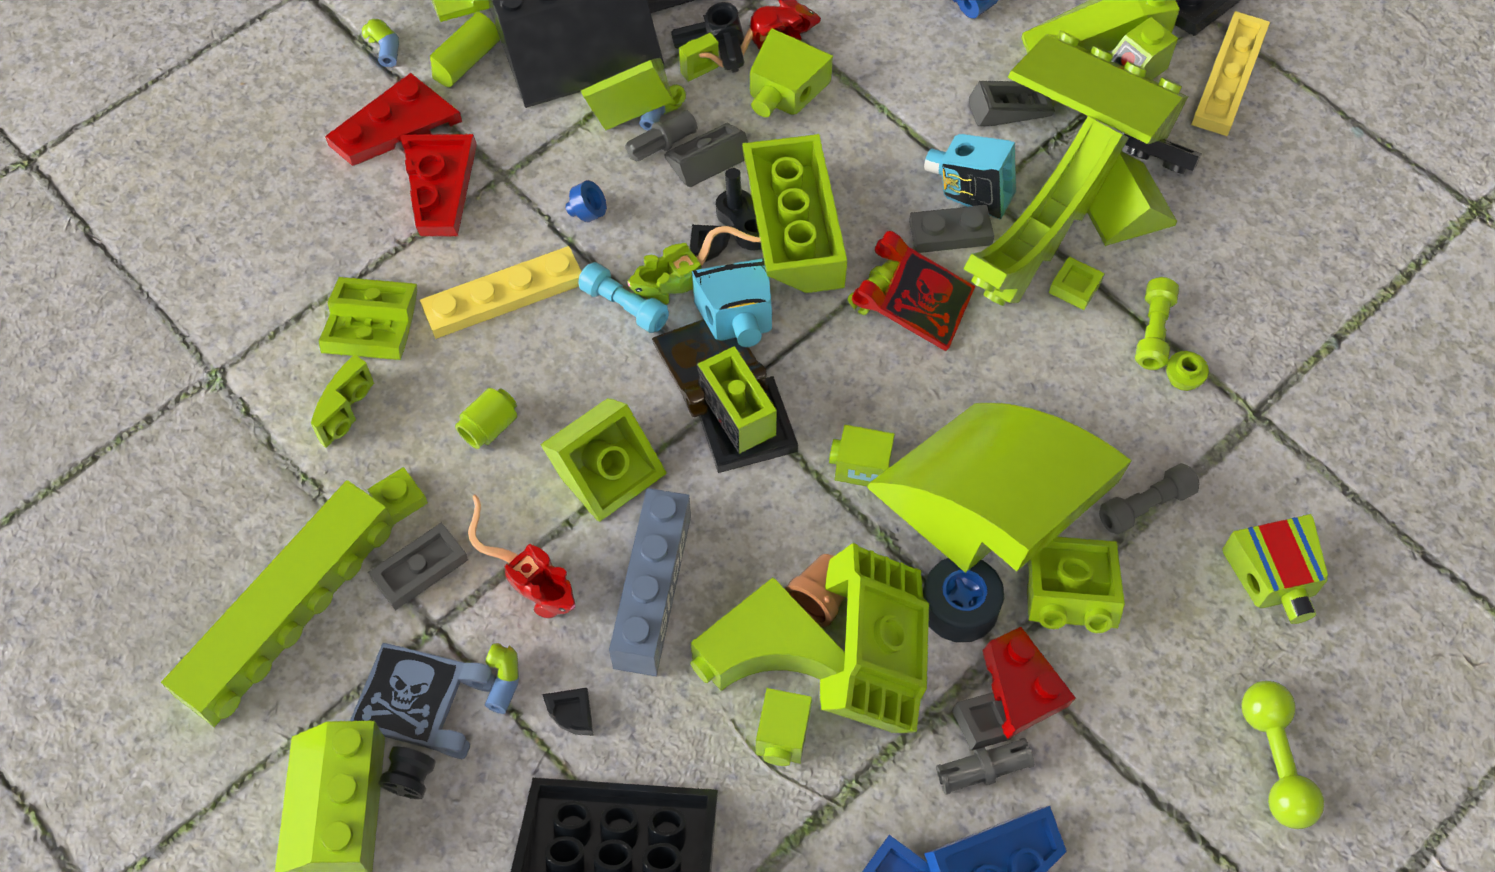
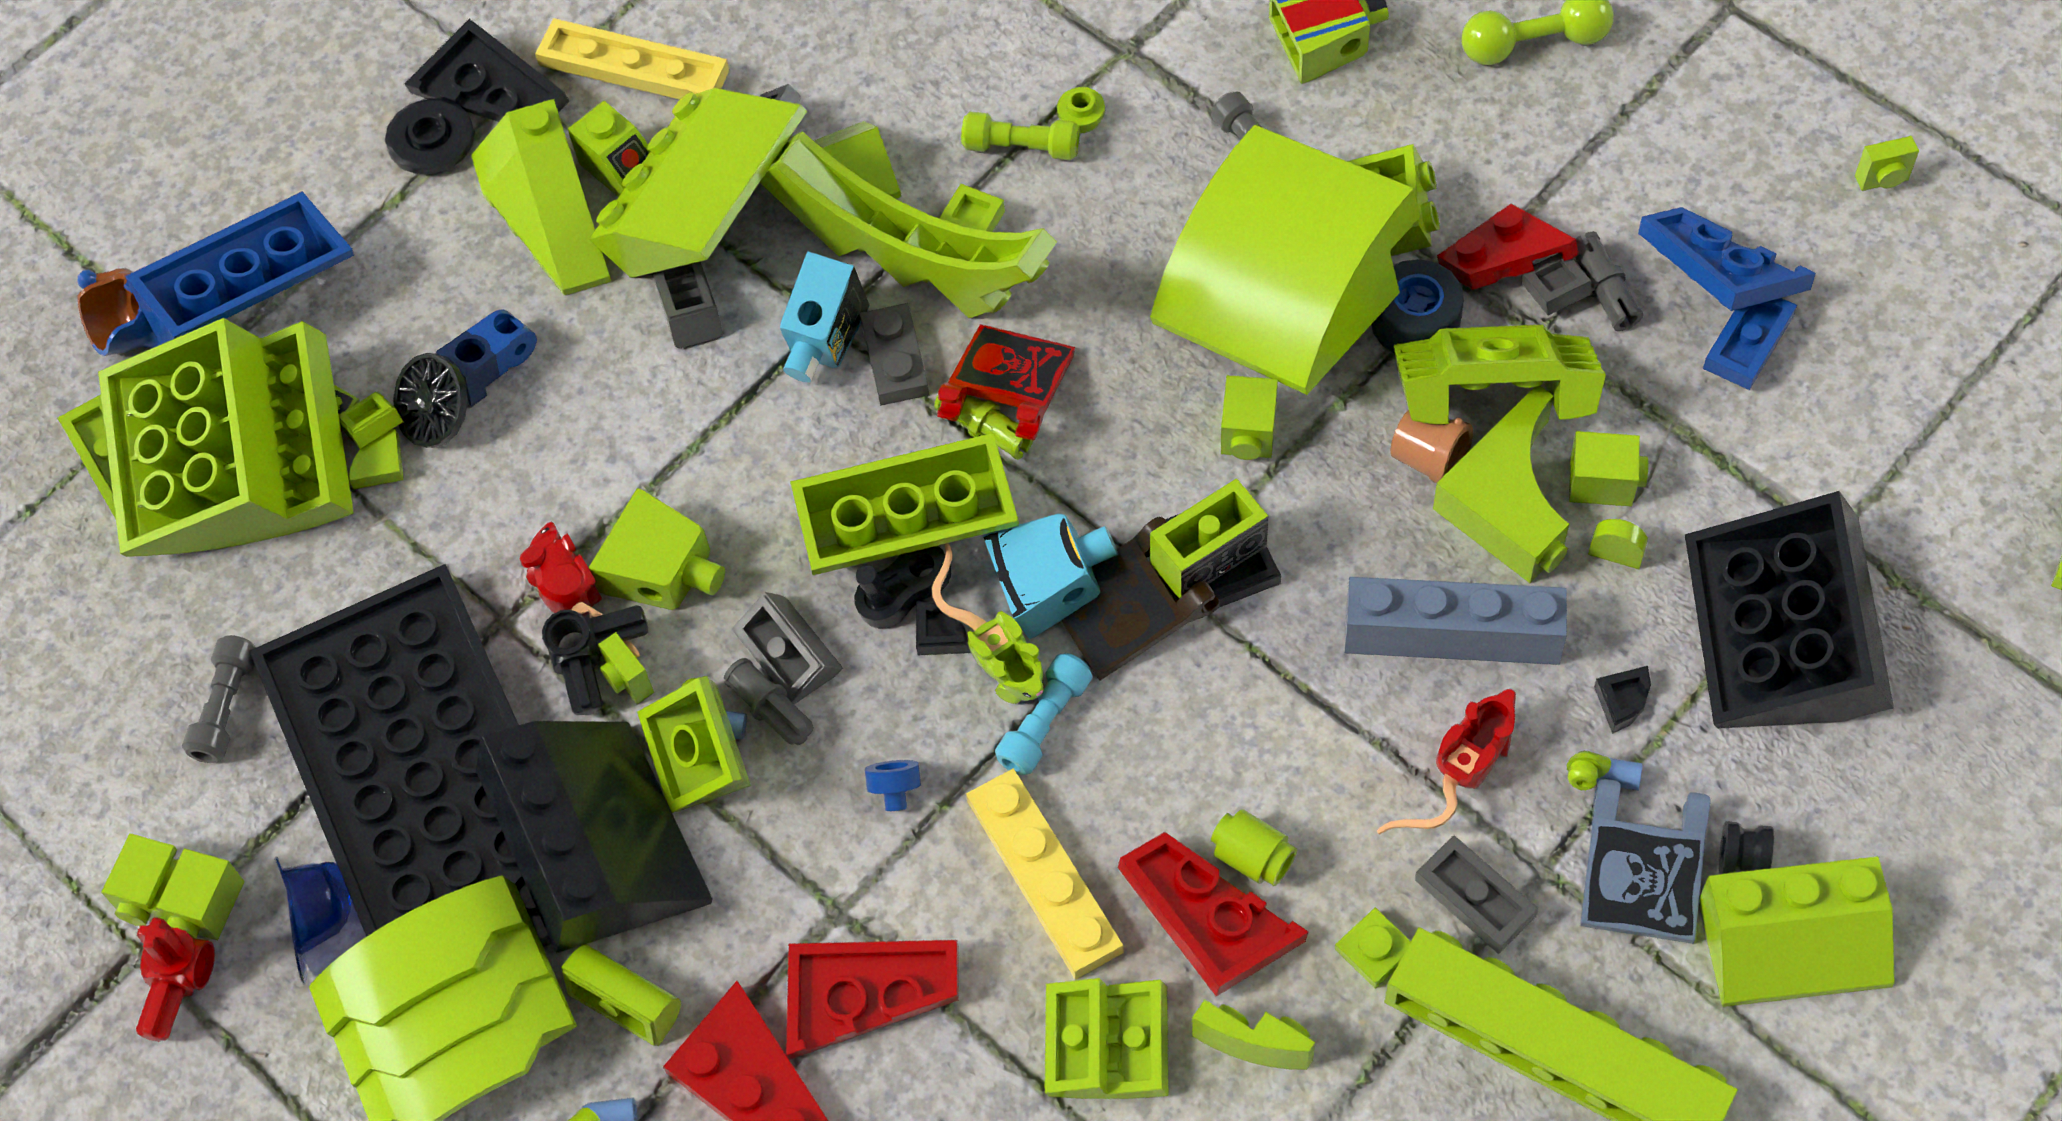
camera: 90 degrees left, 0 degrees up
(444, 384) = (1206, 916): none -> red wing
(604, 458) = (1288, 701): lime slope -> none
(709, 728) = (1619, 542): none -> lime tile

